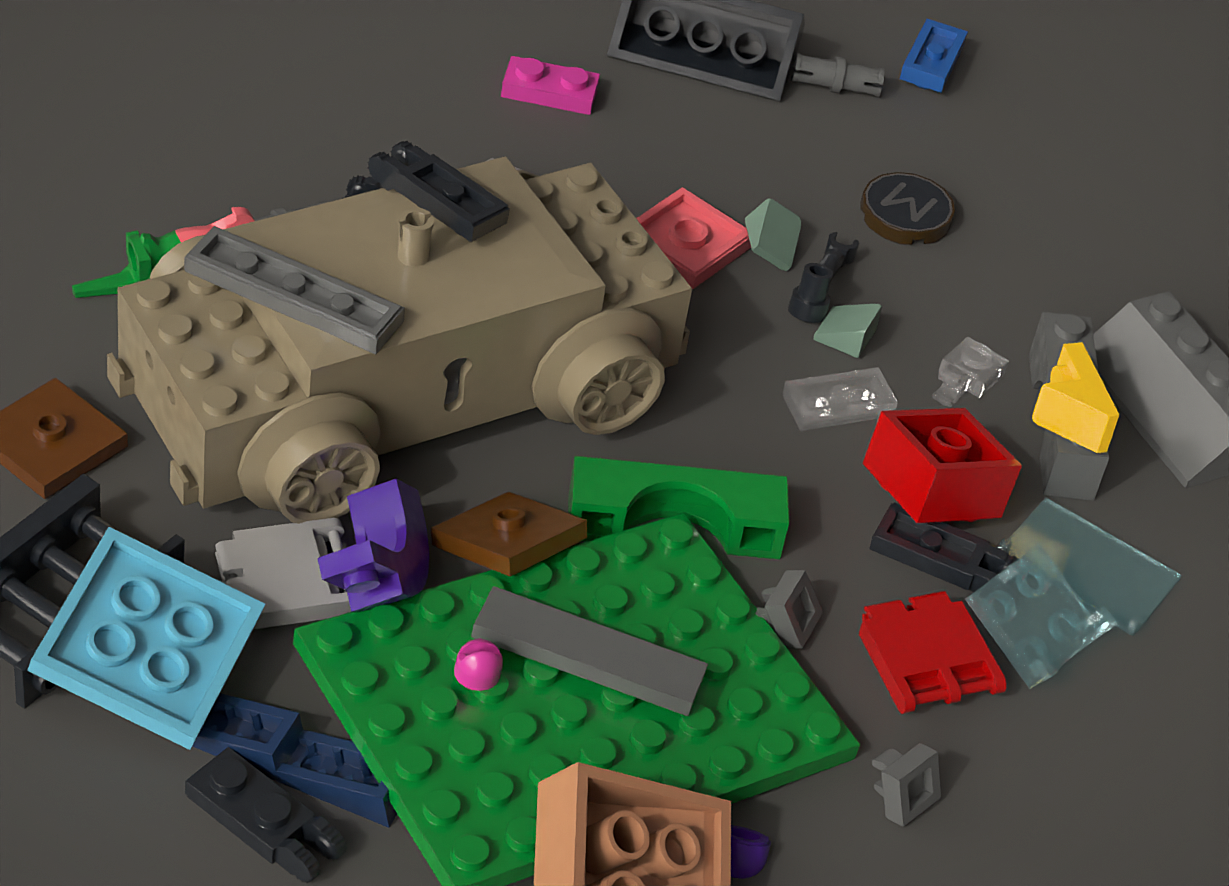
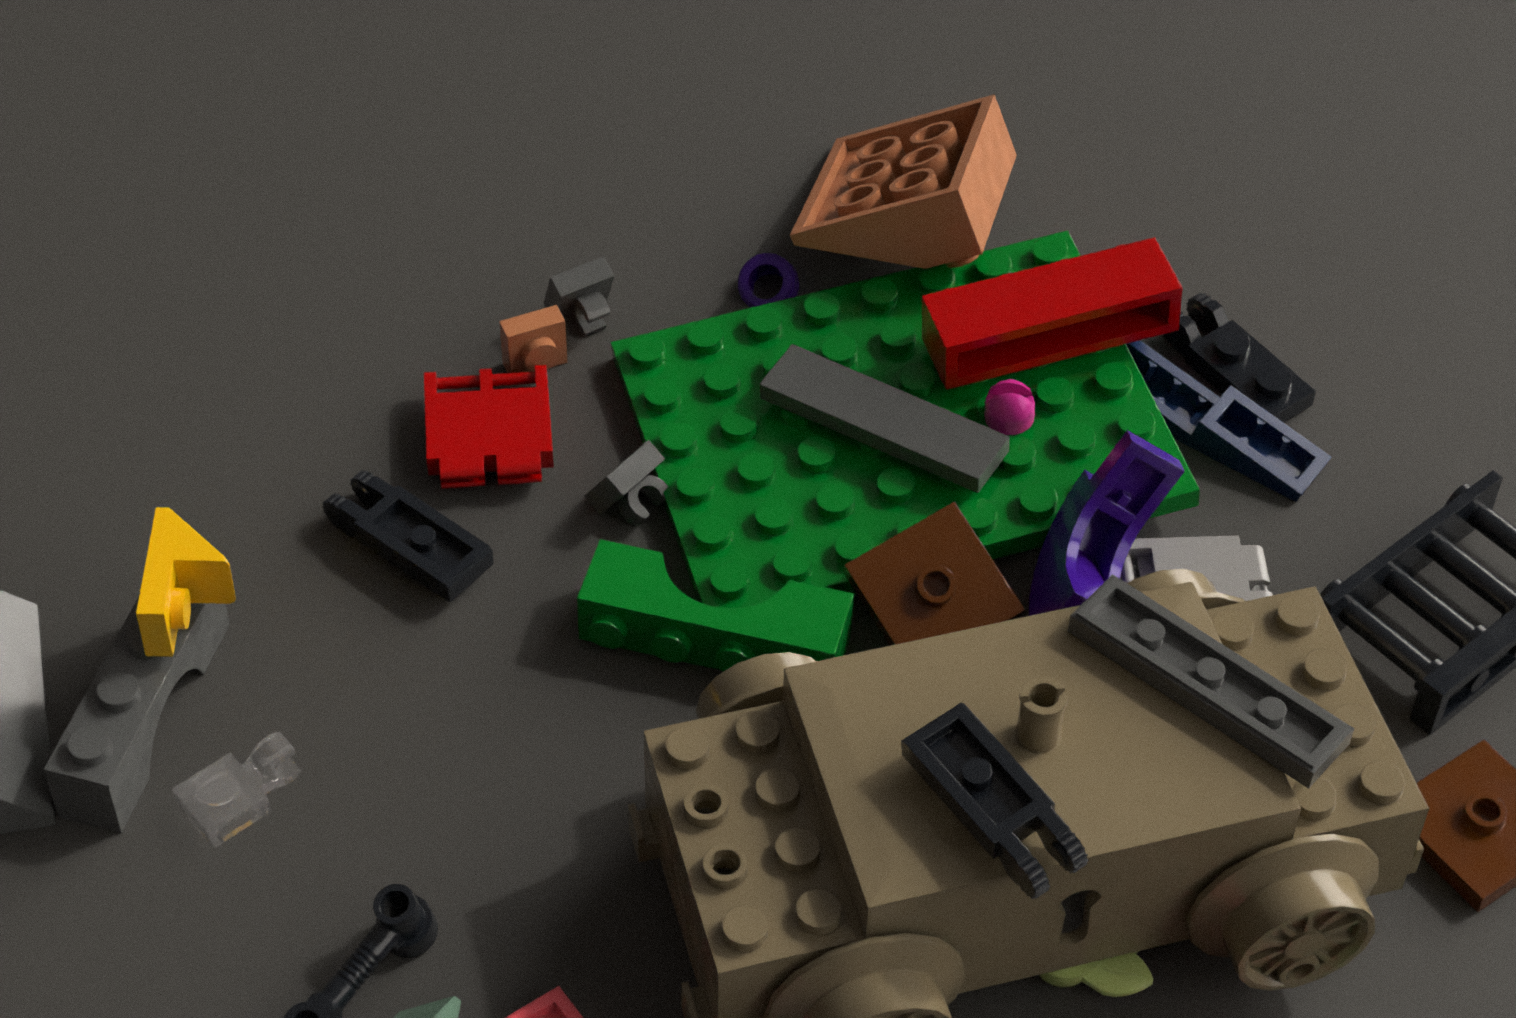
camera: 160 degrees left, 5 degrees up
(147, 638) = (1362, 484): medium azure plate -> none
(456, 736) = (1051, 313): none -> red brick
(838, 398) = (438, 754): clear plate -> none
(849, 327) = (360, 869): sand green slope -> none
(928, 723) = (533, 340): none -> nougat plate
(941, 465) = (373, 589): red brick -> none
(1037, 616) = (348, 434): clear light blue piece -> none
(1096, 564) = (245, 516): clear light blue piece -> none

